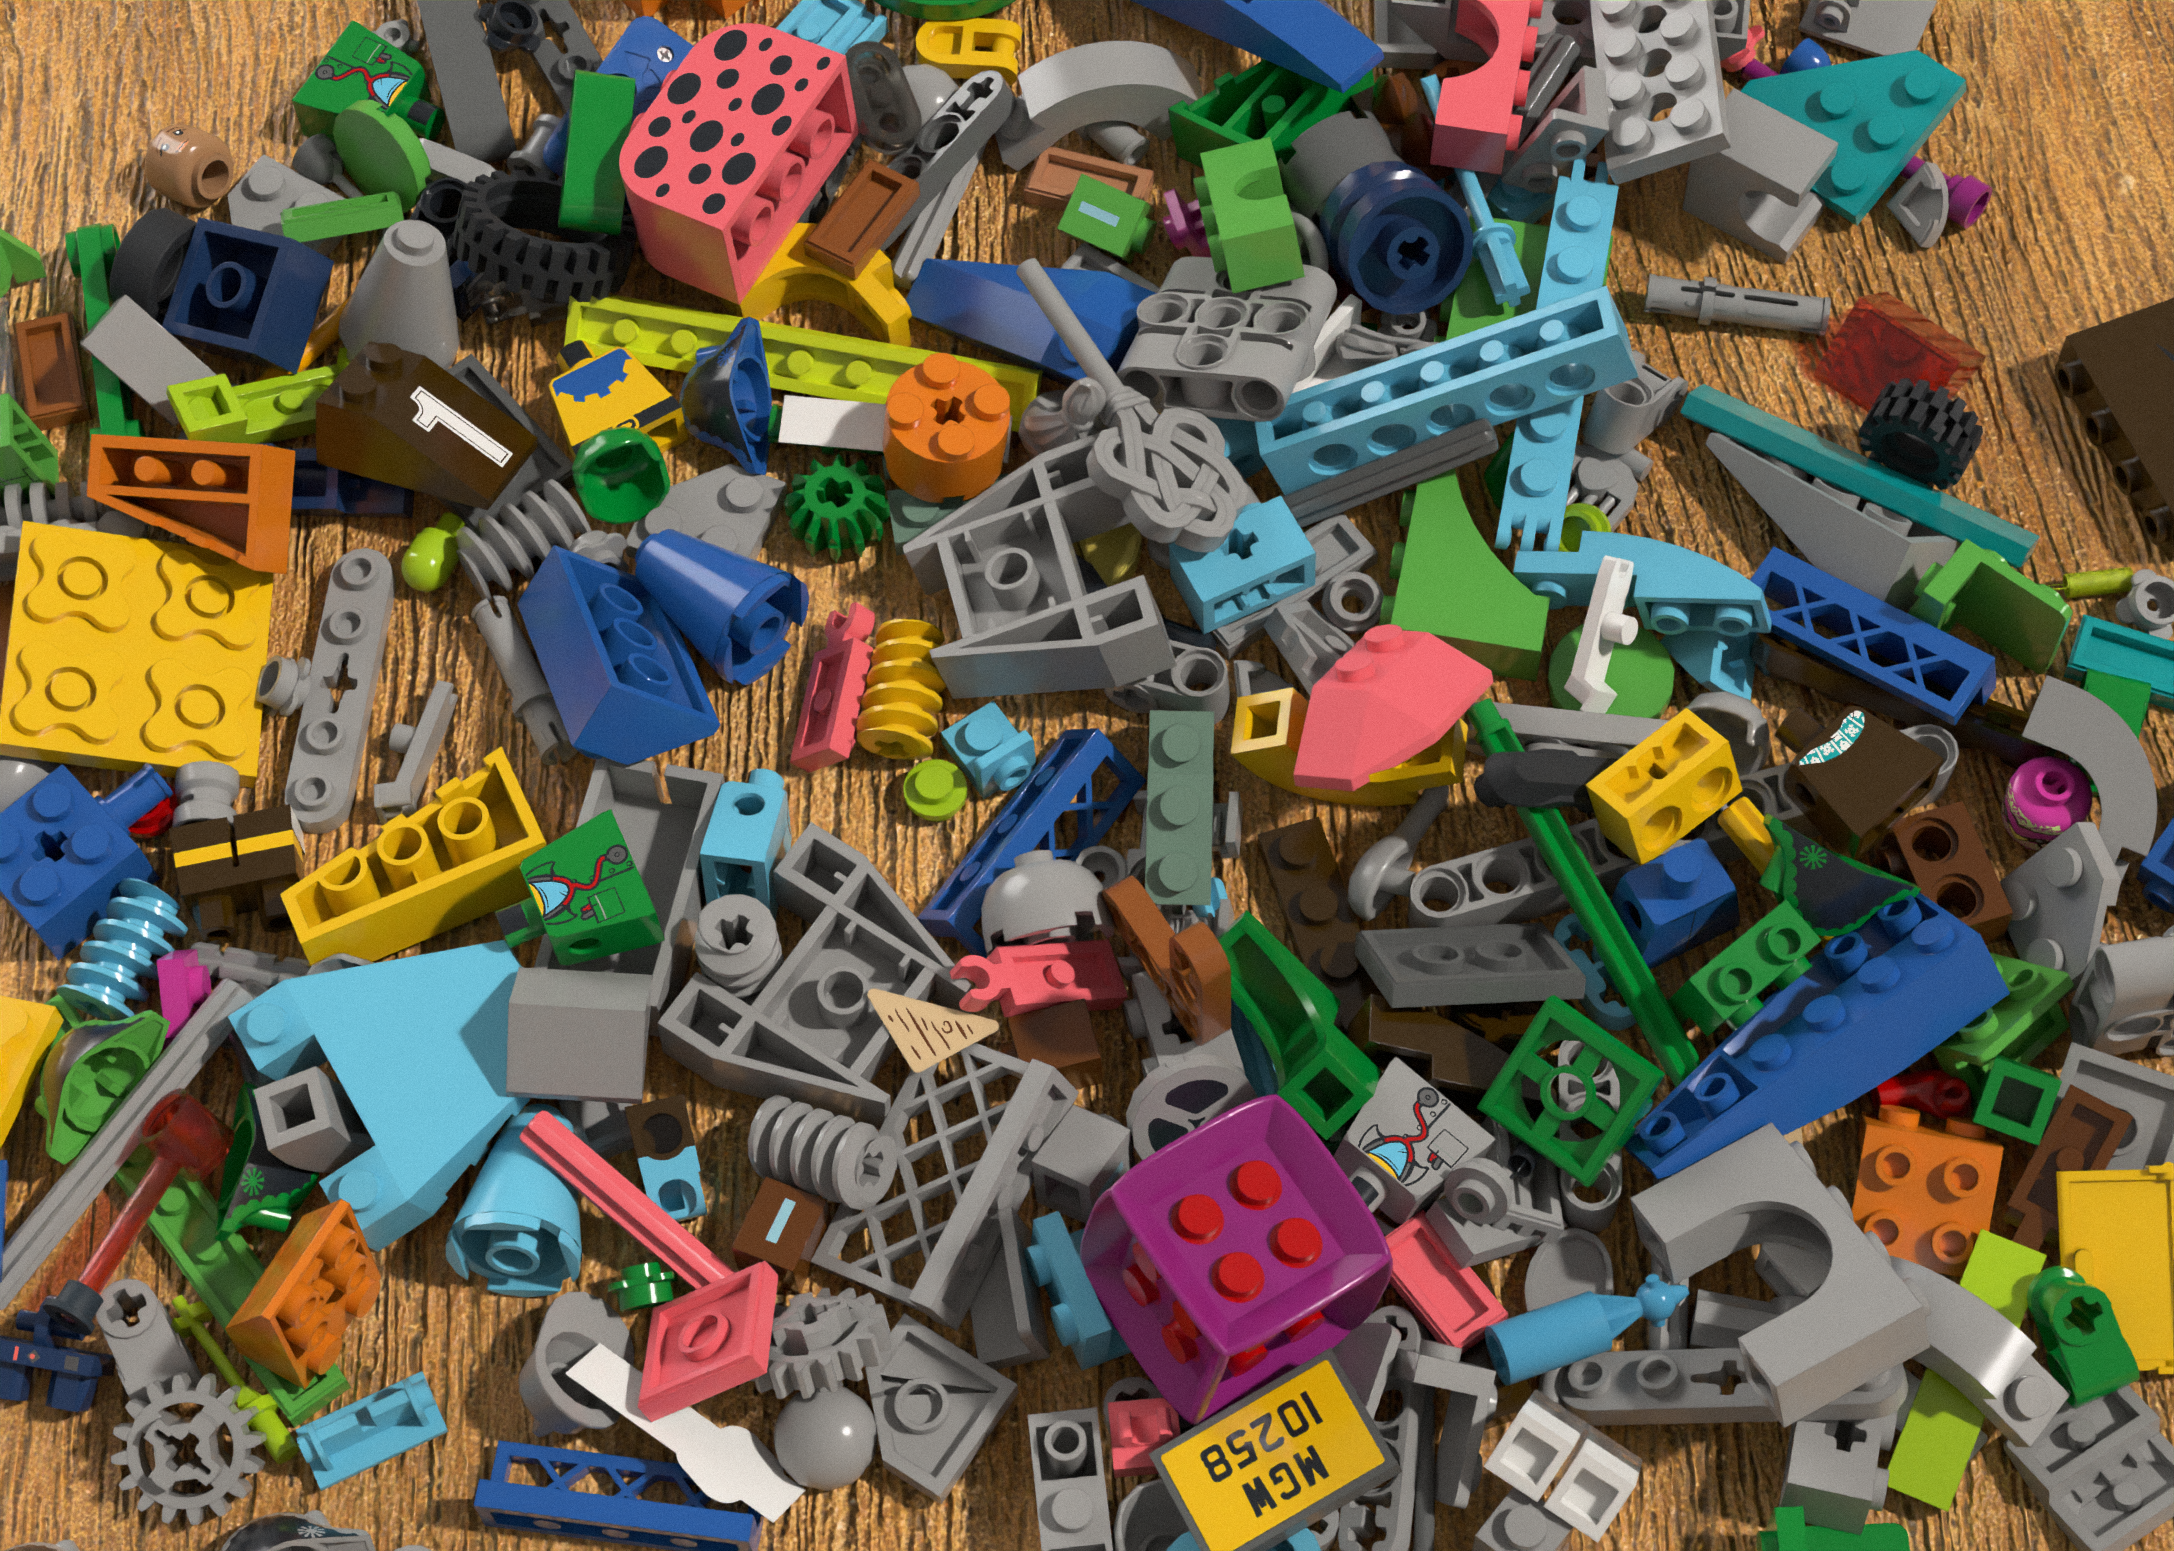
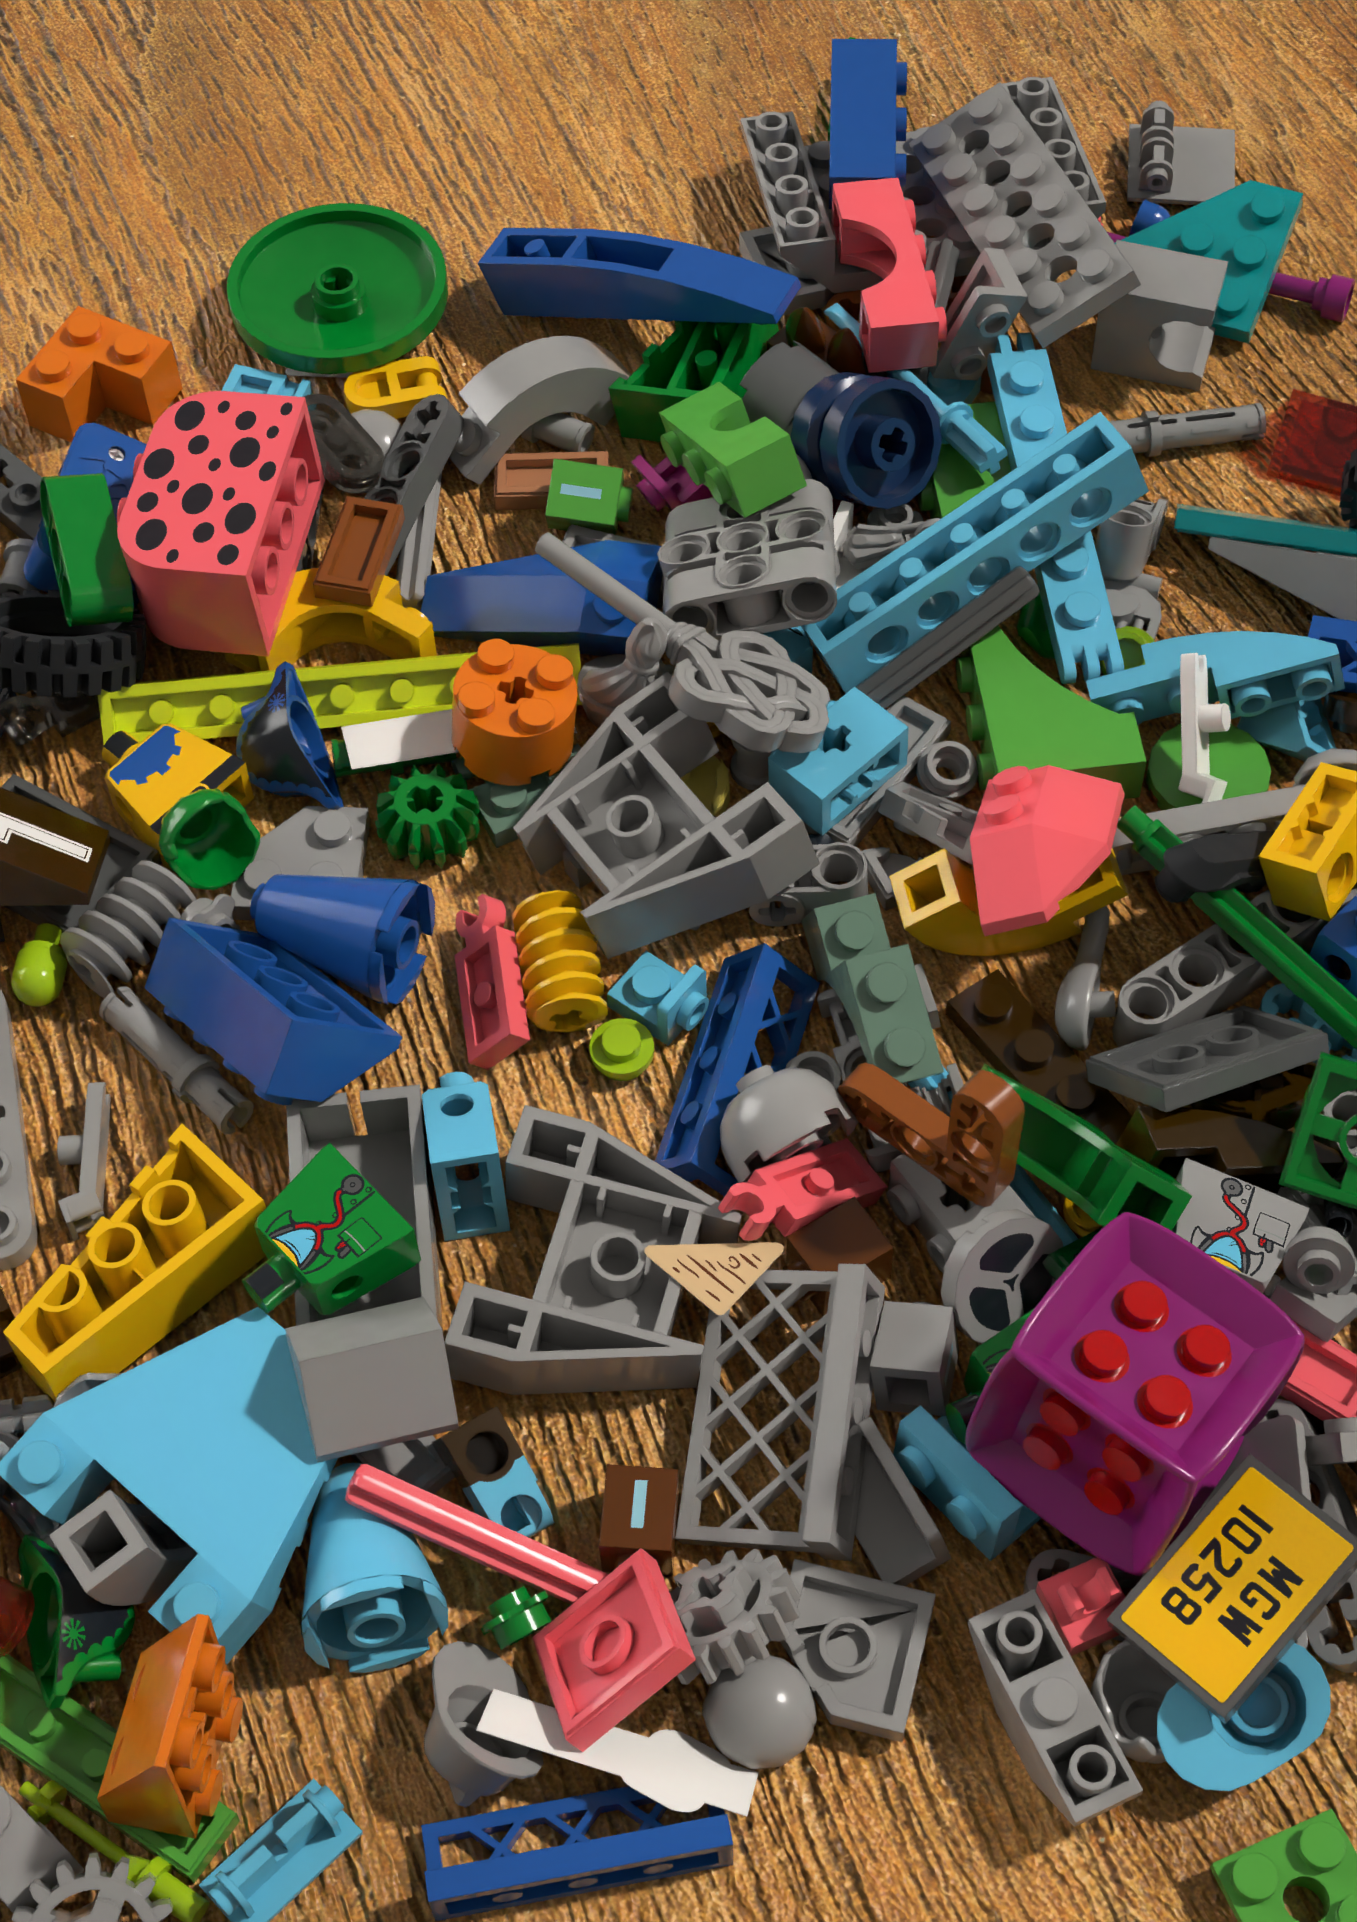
camera: 20 degrees left, 5 degrees down
(738, 945) = (499, 1242): light grey piece -> none
(821, 1152) = (654, 1425): light grey piece -> none
(1922, 204) = (1301, 309): light grey tile -> none

